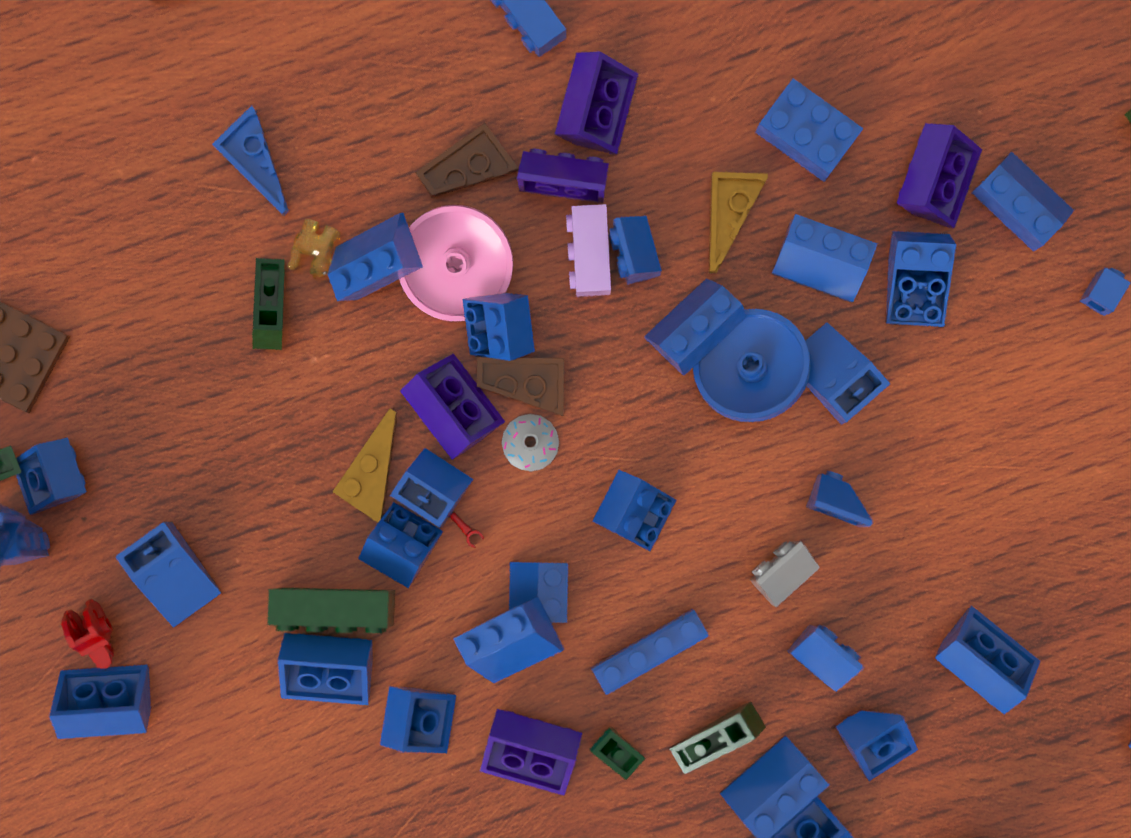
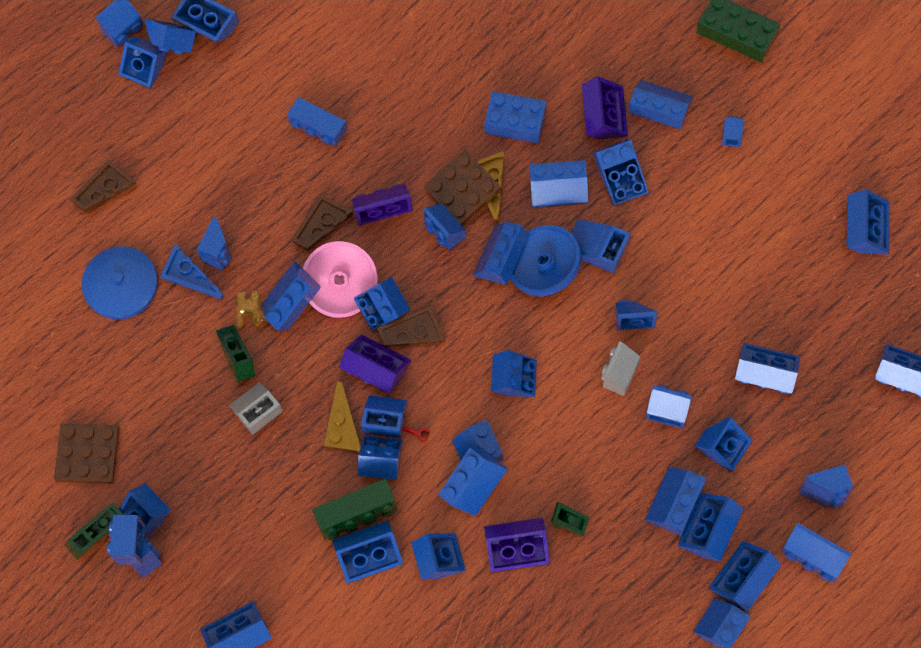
camera: 20 degrees left, 15 degrees down
(91, 634) = (212, 593): red hinge -> none
(155, 126) = (119, 282): none -> blue dish
(169, 573) = (244, 536): blue slope -> none
(261, 396) = (256, 408): none -> light grey slope
(305, 135) = (213, 247): none -> blue slope
(533, 457) = (432, 374): light grey dish -> none
(589, 250) = (417, 239): lavender brick -> none
(596, 102) = (382, 155): dark purple slope -> none
(649, 651) = (561, 452): blue brick -> none
(687, 203) = (463, 187): none -> reddish brown plate
(718, 738) = (627, 485): dark green slope -> none

